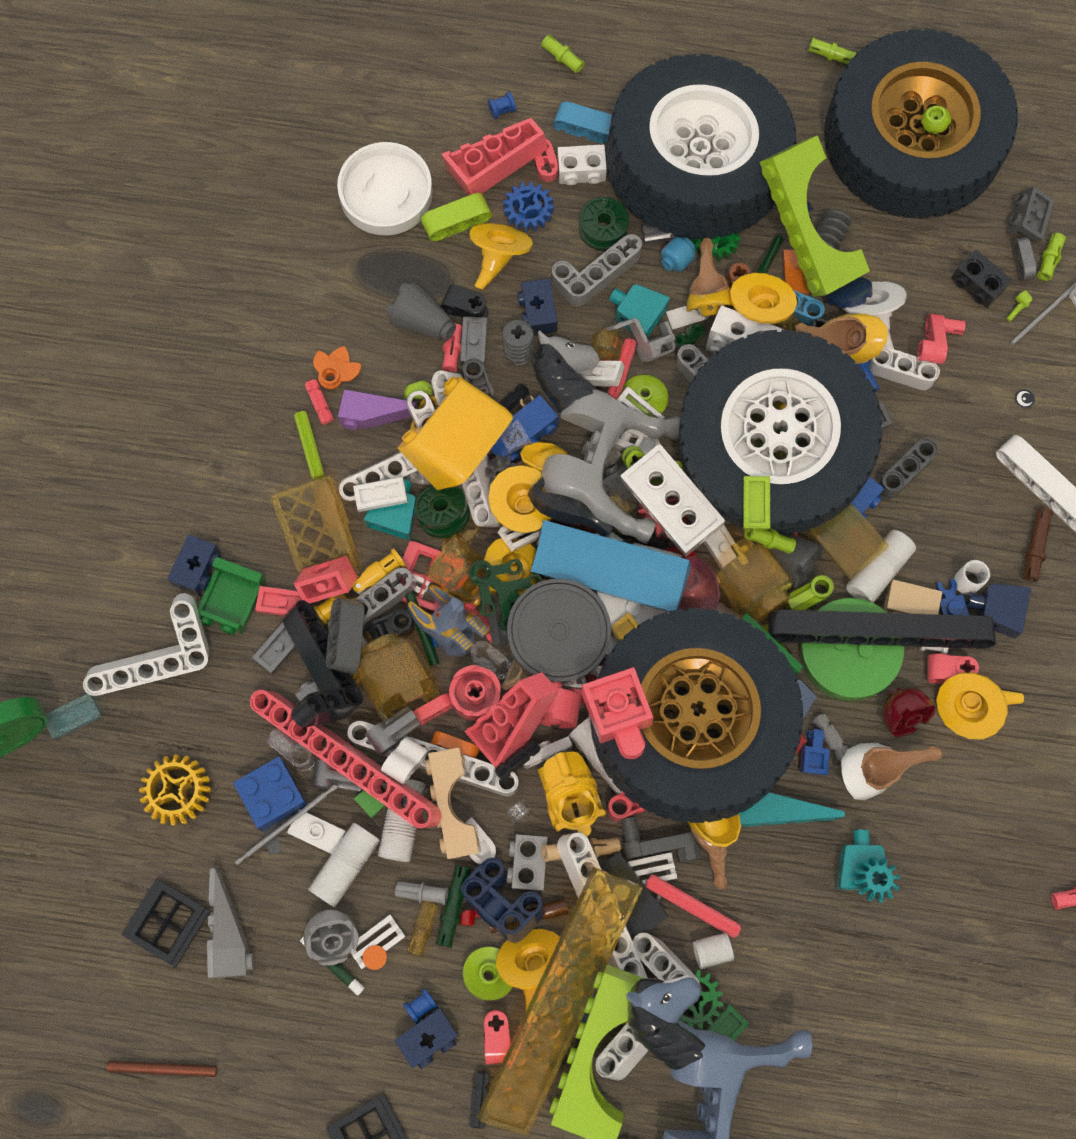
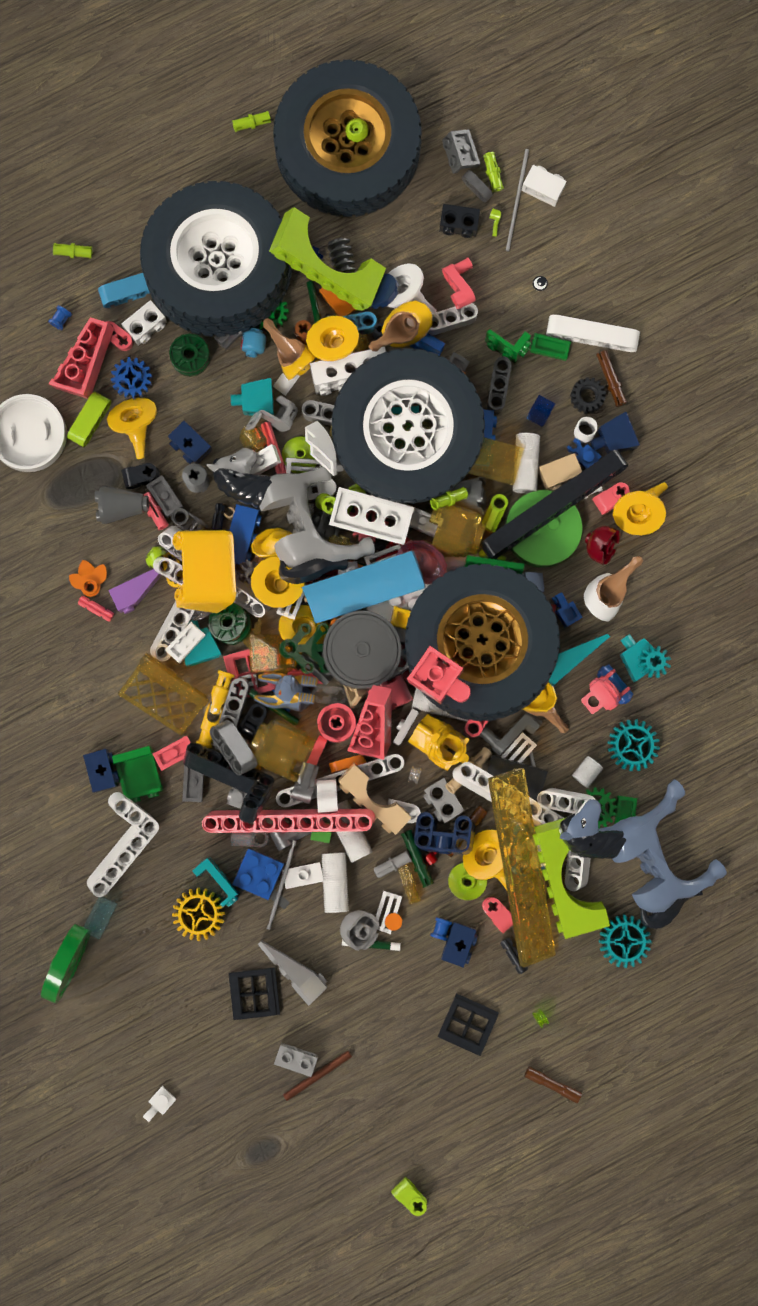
camera: 40 degrees left, 10 degrees up
(151, 1031) = (296, 1059): none -> light grey brick
(226, 765) = (210, 866): none -> teal panel
(309, 445) = (111, 641): lime axle -> none
(325, 580) = (193, 721): coral brick -> none
(514, 437) = (242, 544): clear tile -> none
(517, 760) = (393, 745): black axle -> none
(599, 267) = (209, 387): light grey beam -> none
(671, 398) = (321, 446): none -> white slope
(691, 335) = (301, 392): dark green arm -> none
(693, 906) = (557, 754): coral axle -> none
(756, 502) = (427, 485): lime tile -> none
(786, 971) = (628, 737): none -> teal gear
(801, 875) = (608, 690): none -> coral piece
(831, 735) = (567, 591): light grey axle -> none
(935, 525) = (540, 410): none -> clear blue panel
(949, 443) = (507, 350): none -> green bracket
(991, 468) = (550, 346): none -> green tile
(1009, 535) = (588, 406): none -> black tyre

